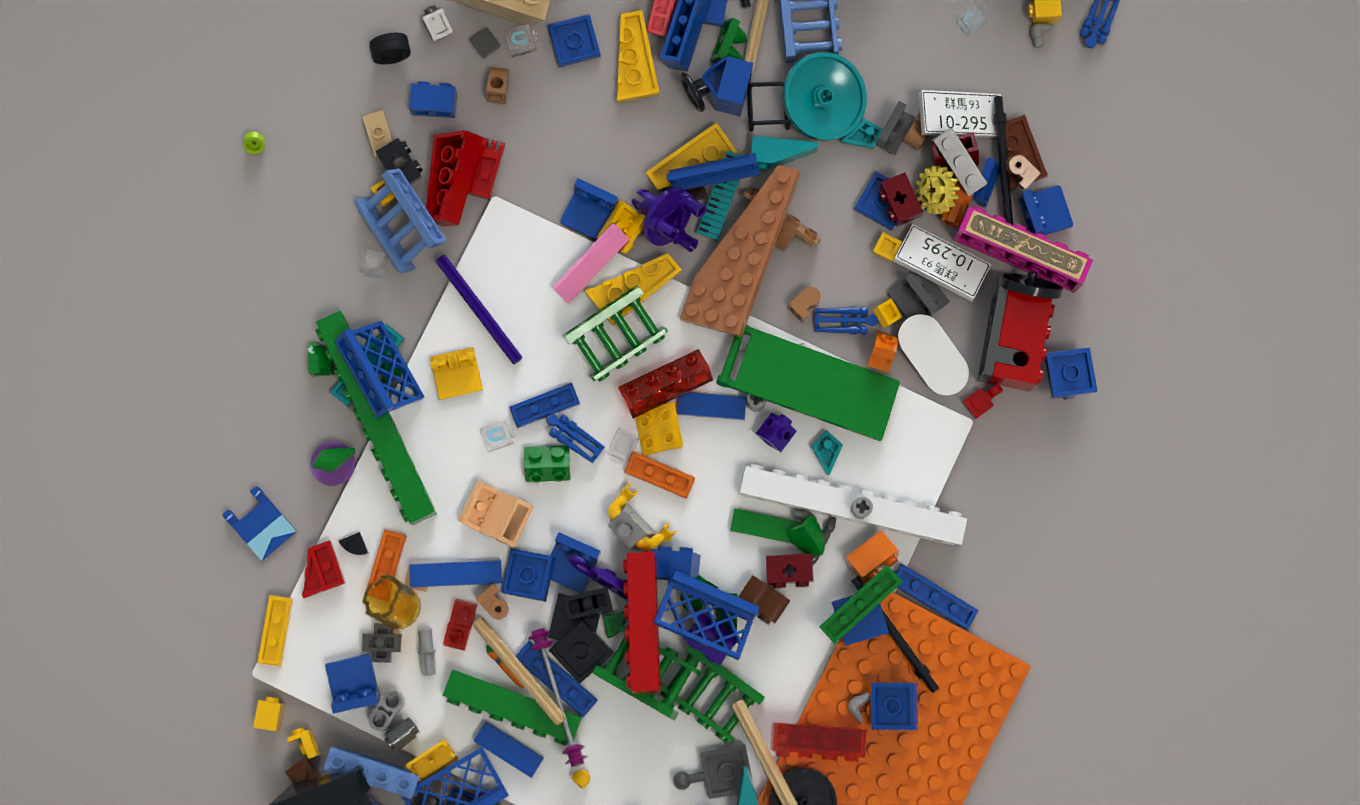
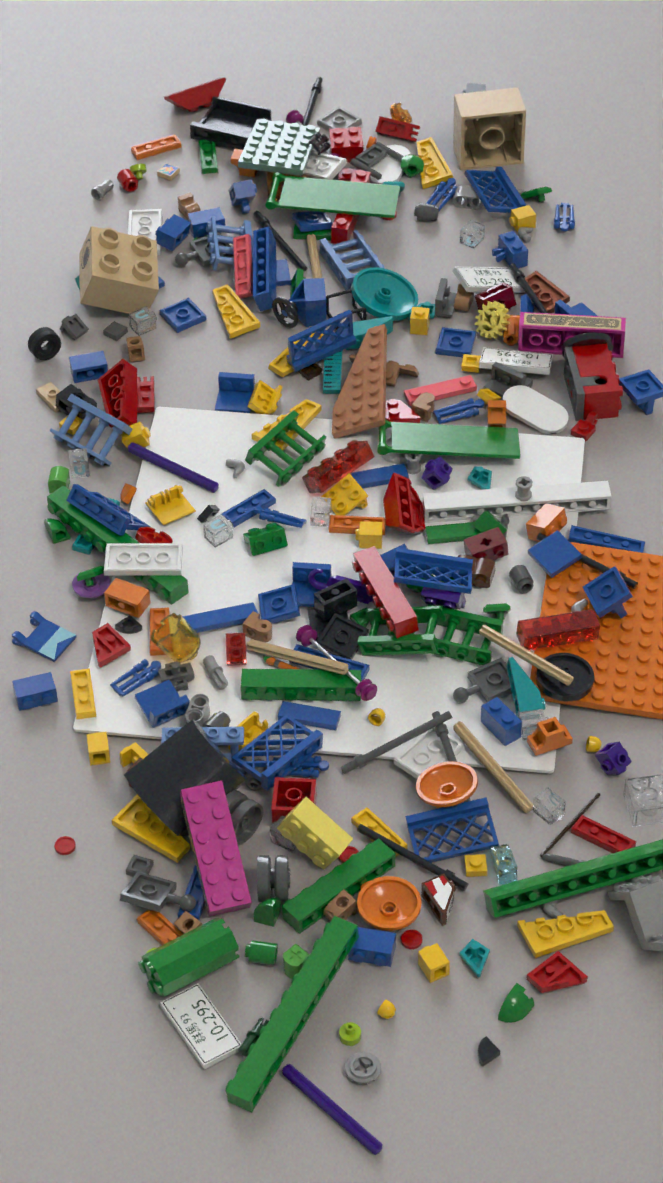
camera: 15 degrees left, 35 degrees down
(224, 607) = (35, 691): none -> blue brick
(344, 284) = (58, 477): none -> bright green piece
(352, 631) = (148, 676): none -> blue piece
(362, 510) = (127, 597): none -> orange brick
(393, 465) = (143, 559): none -> white tile
(417, 328) = (127, 493): none -> orange tile
(419, 427) = (148, 535): none -> red tile
(455, 247) = (138, 435): none -> yellow brick
(495, 513) = (237, 576): light nougat piece -> none
(496, 401) = (210, 509): none -> black tile
(554, 329) = (239, 465): none -> light grey animal
(590, 263) = (249, 419): bright pink tile -> none
(631, 527) = (343, 546): torso -> none
(665, 502) = (370, 534): none -> yellow brick
(669, 216) = (298, 377): dark purple piece -> none
(717, 478) = (403, 506): none -> red wedge
(766, 670) = (498, 609): none -> green piece
(771, 305) = (399, 412): none -> wing
(810, 630) = (521, 578): none -> dark grey brick
(835, 278) = (443, 389): none -> coral plate
(851, 155) = (419, 320): none -> yellow brick
(861, 604) = (551, 538): green plate -> none
(900, 187) = (468, 331): dark red brick -> none
(959, 161) = (501, 294): light grey plate -> none
(1009, 66) = (511, 250): none -> blue brick
(1022, 169) = (548, 292): leg -> none

